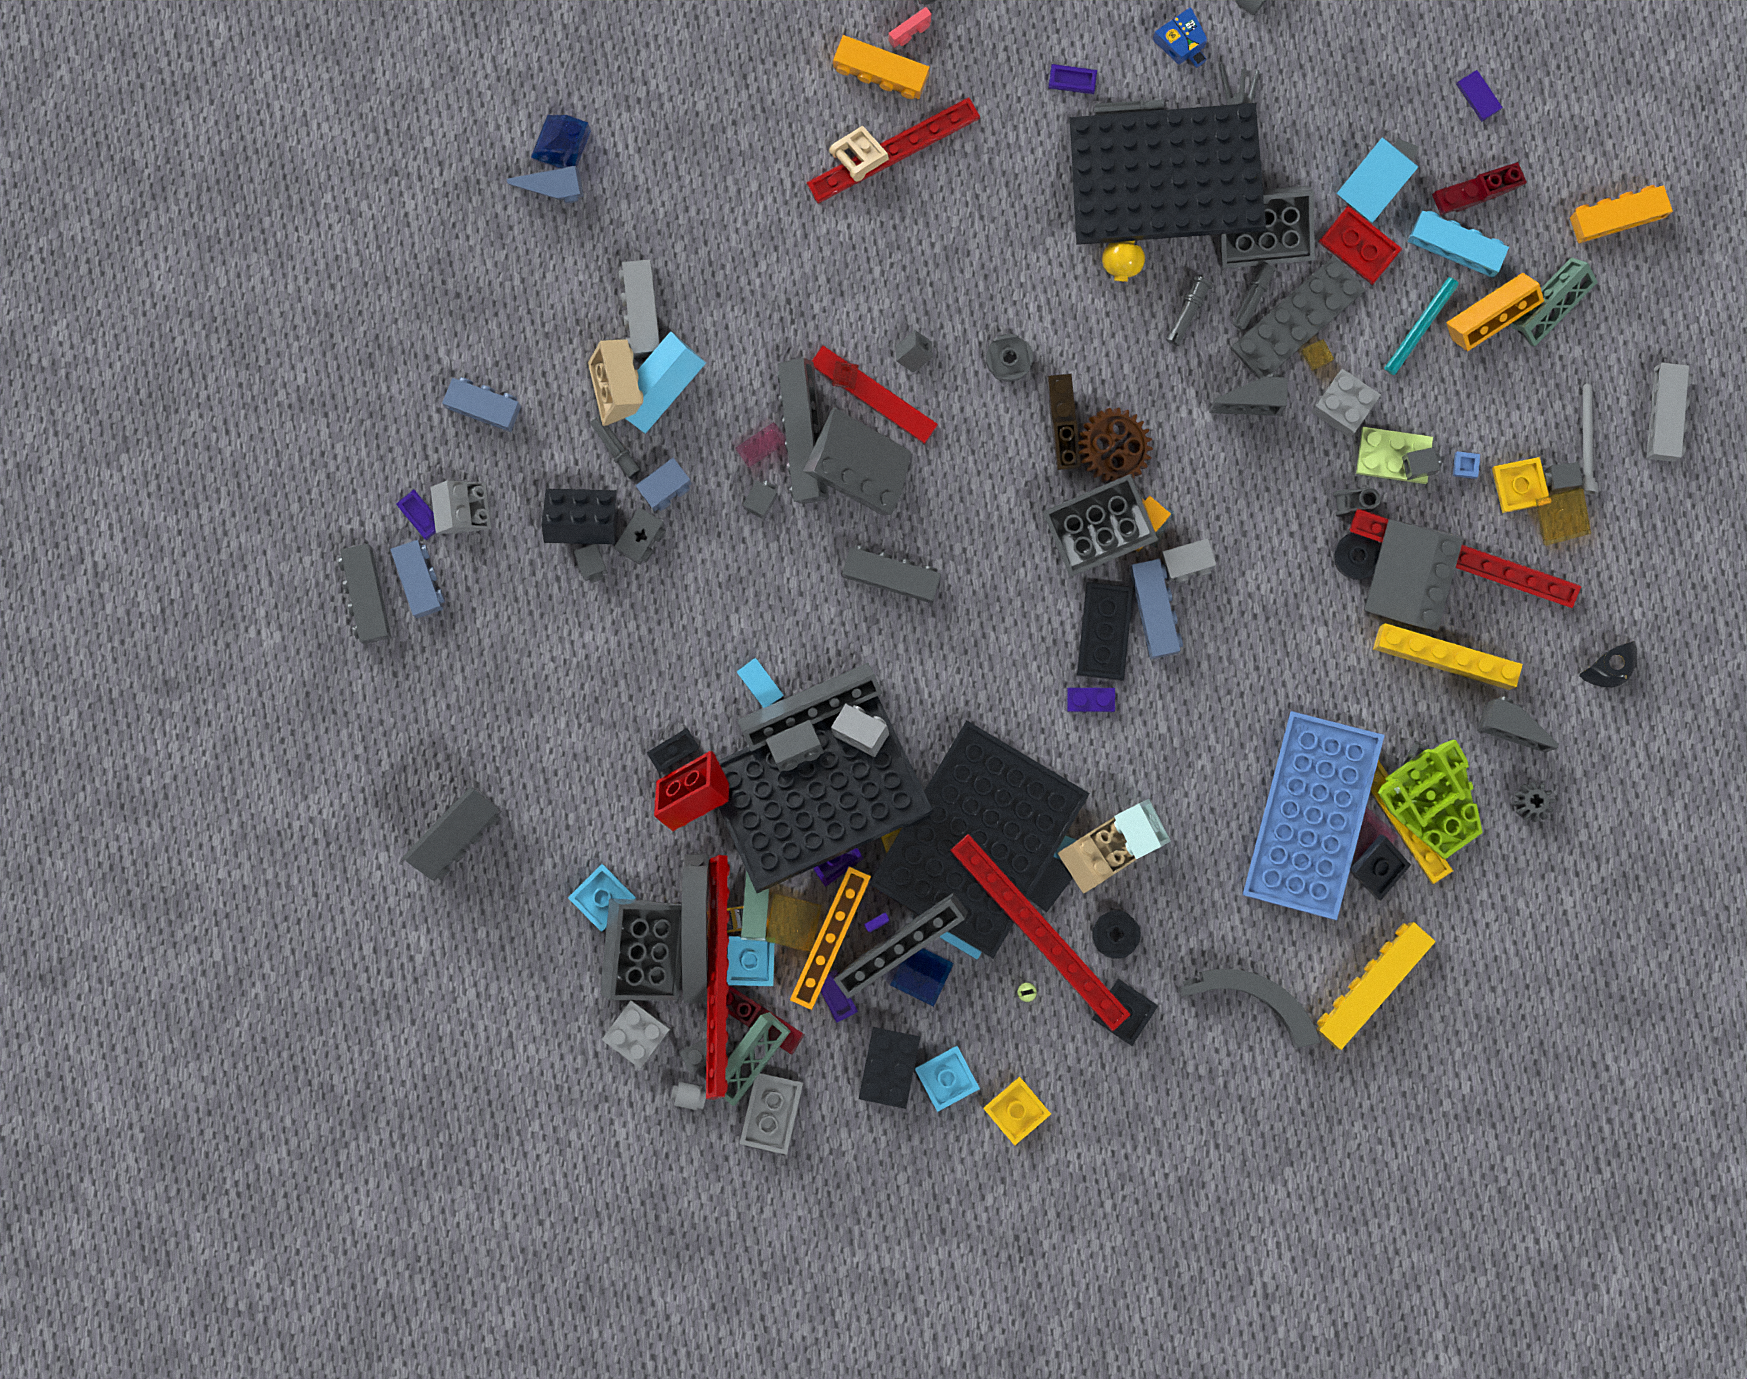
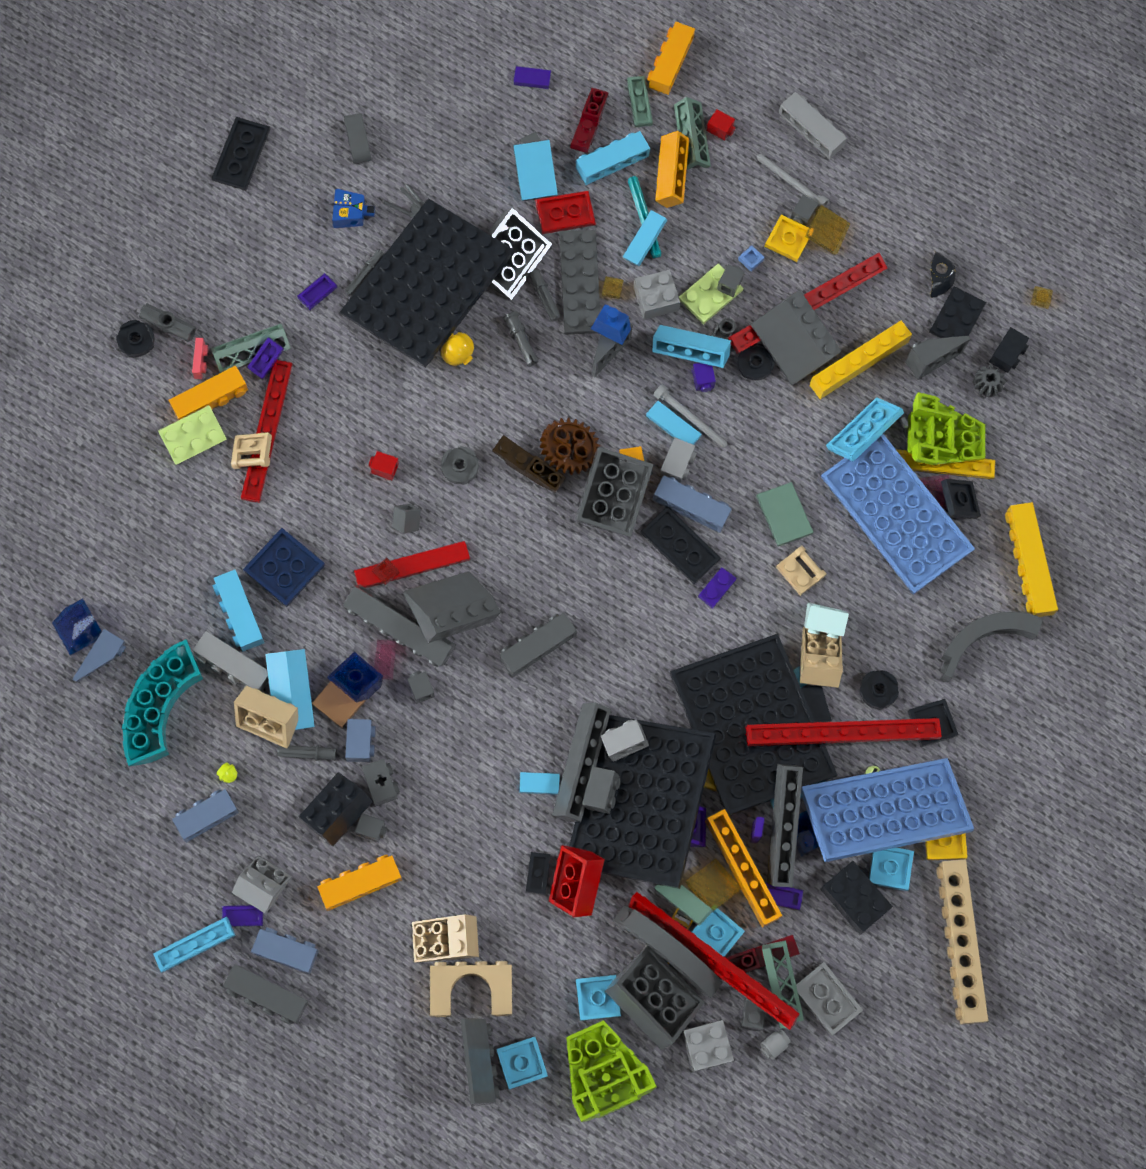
camera: 55 degrees left, 10 degrees down
(359, 493) = (194, 944): none -> medium azure tile
(487, 875) = (522, 1063): none -> medium azure plate
(532, 594) = (359, 882): none -> light orange brick
(535, 956) = (604, 1072): none -> lime wedge
(537, 391) = (227, 773): none -> neon yellow plate
(544, 715) = (445, 938): none -> tan slope
(546, 790) = (444, 978): none -> tan arch
(547, 268) = (152, 701): none -> teal brick
(687, 436) = (336, 704): none -> medium nougat tile
(696, 272) = (238, 609): none -> medium azure brick
(716, 433) = (356, 678): none -> clear blue slope
(772, 278) = (284, 567): none -> dark blue plate
(828, 85) = (192, 435): none -> yellowish green plate
(871, 1266) = (958, 870): none -> tan brick
(948, 287) = (384, 465): none -> red brick
(962, 88) = (265, 358): none -> dark purple plate
(964, 58) = (247, 342): none -> sand green fence
(996, 1031) = (886, 809): none -> medium blue plate
(1168, 765) = (796, 574): none -> tan plate
(1221, 707) = (784, 514): none -> sand green tile
(1223, 526) = (672, 423): none -> medium azure tile
(1246, 492) = (663, 394): none -> light grey piece
(1266, 384) = (612, 324): none -> blue torso
(1298, 517) = (703, 377): none -> dark purple brick
(1317, 480) = (691, 346): none -> medium azure brick
(1375, 717) = (865, 429): none -> medium azure tile
(1396, 344) = (645, 238): none -> medium azure tile
(1545, 221) = (639, 101): none -> sand green tile
(1580, 717) = (957, 315): none -> black plate
(1585, 797) = (1009, 349): none -> black brick
(1588, 321) = (721, 125): none -> red brick
(1674, 787) = (1041, 297): none -> clear yellow plate

